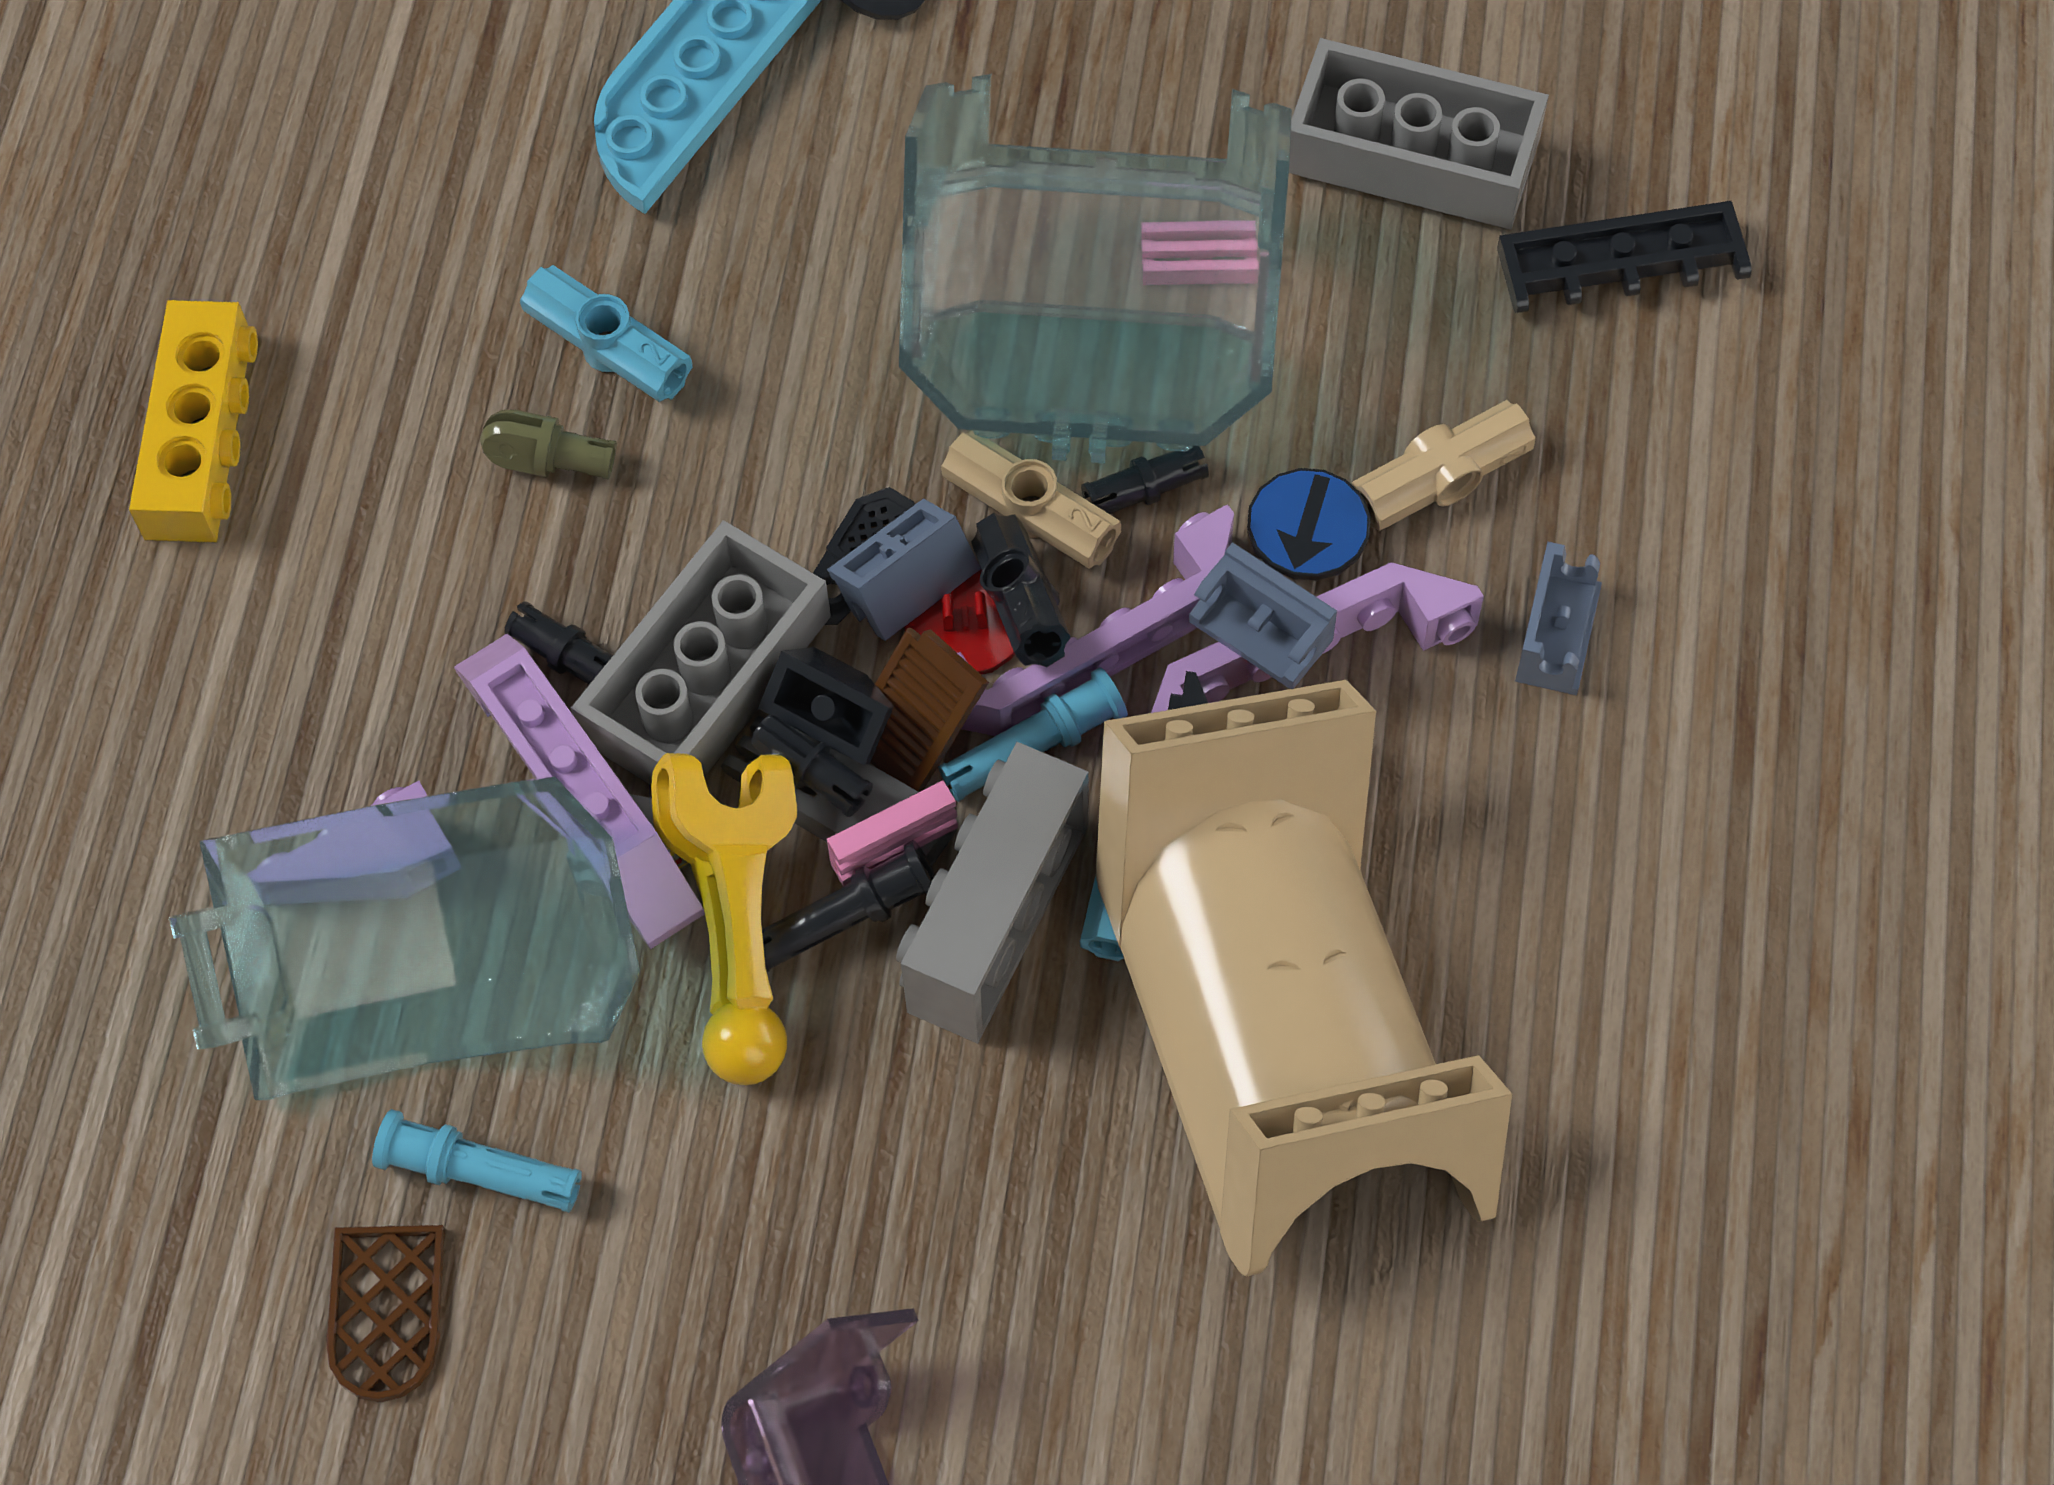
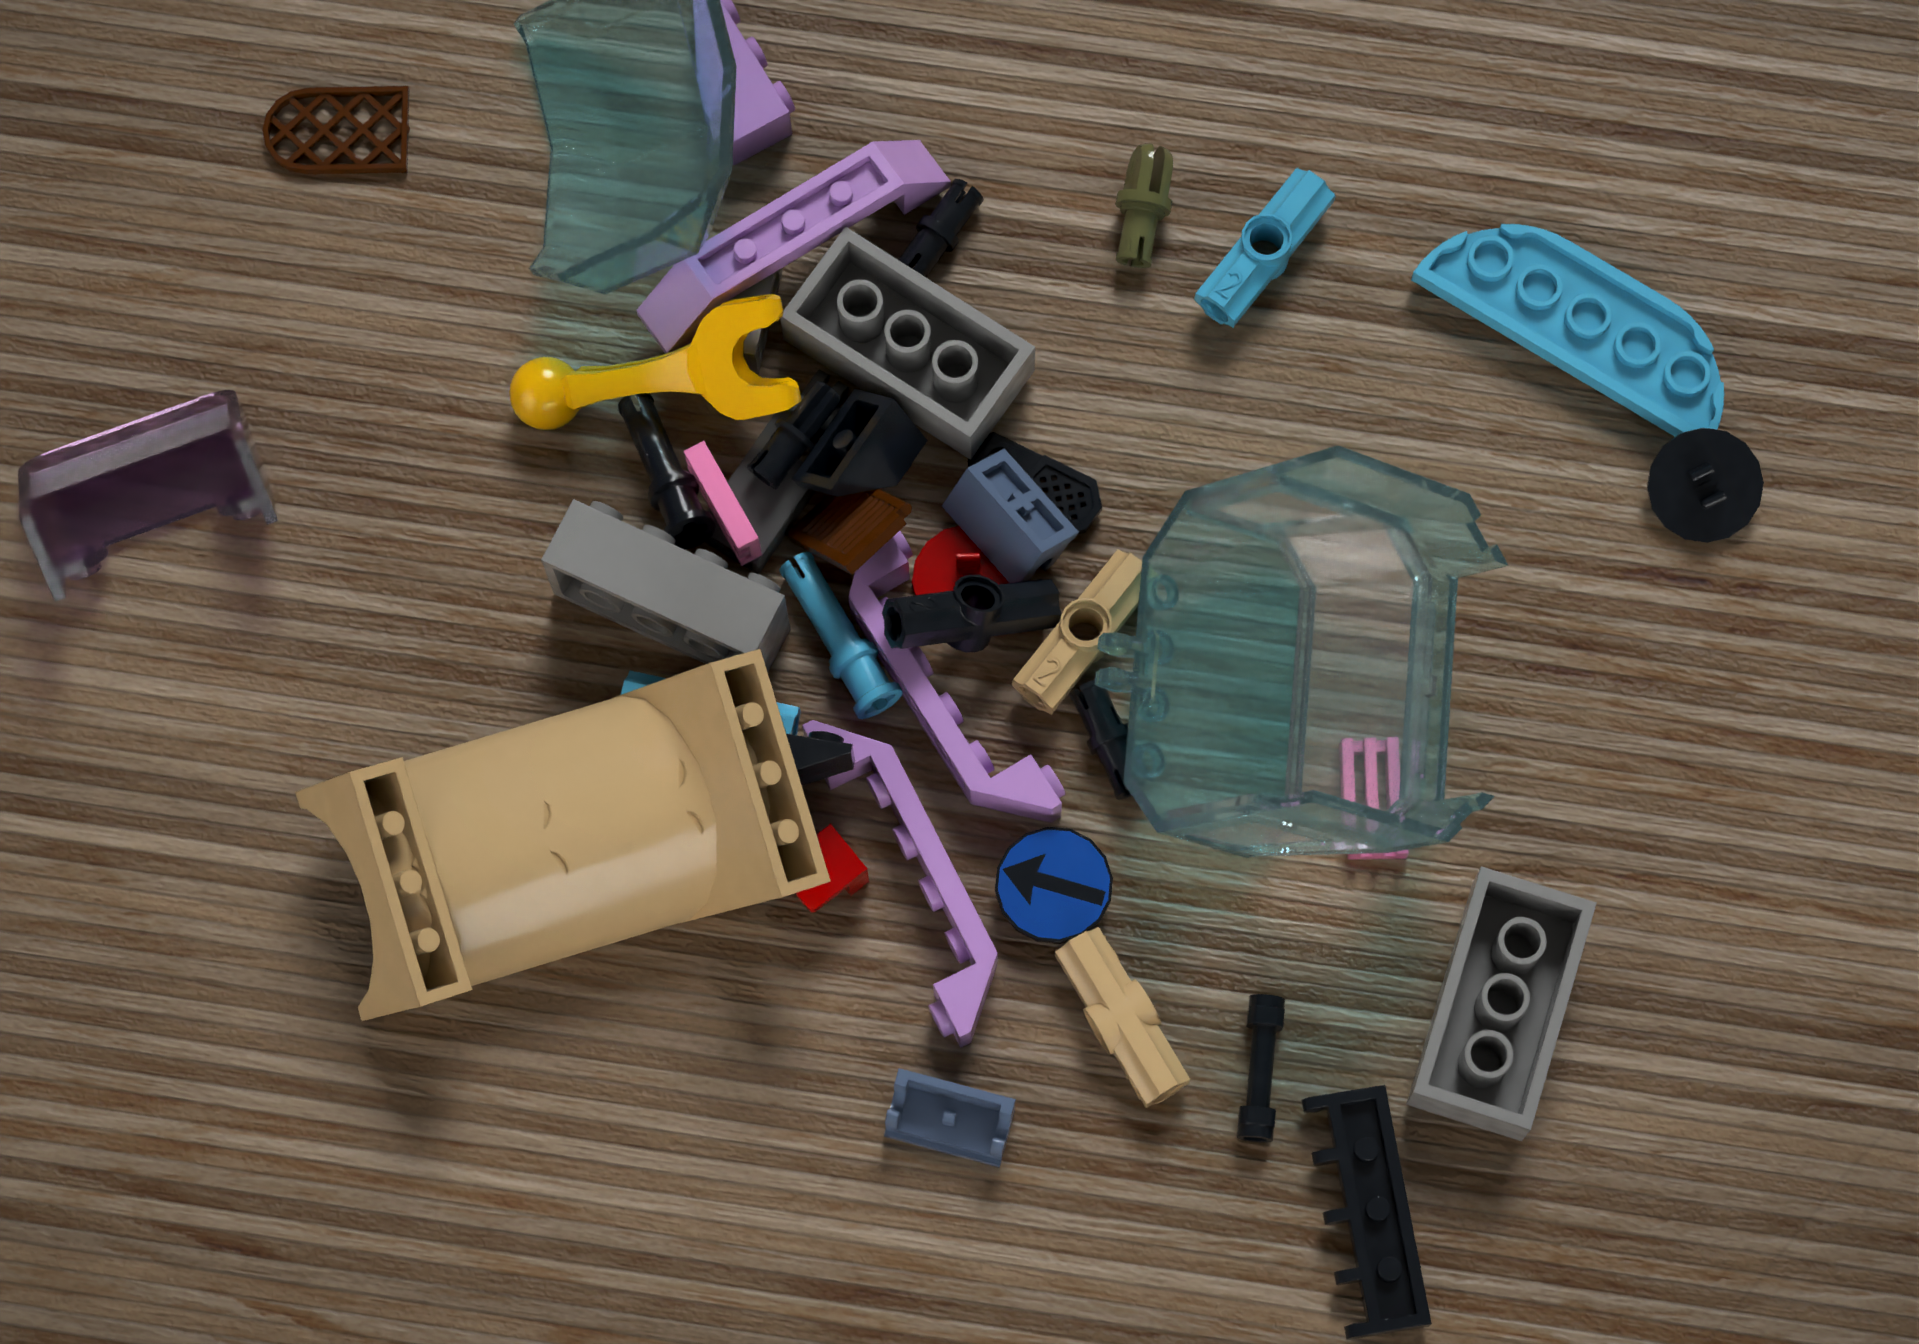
camera: 90 degrees right, 10 degrees up
(446, 1156) = (459, 164): medium azure pin -> none
(1263, 616) = (927, 825): sand blue hinge -> none
(1537, 353) = (1265, 1017): none -> black bar

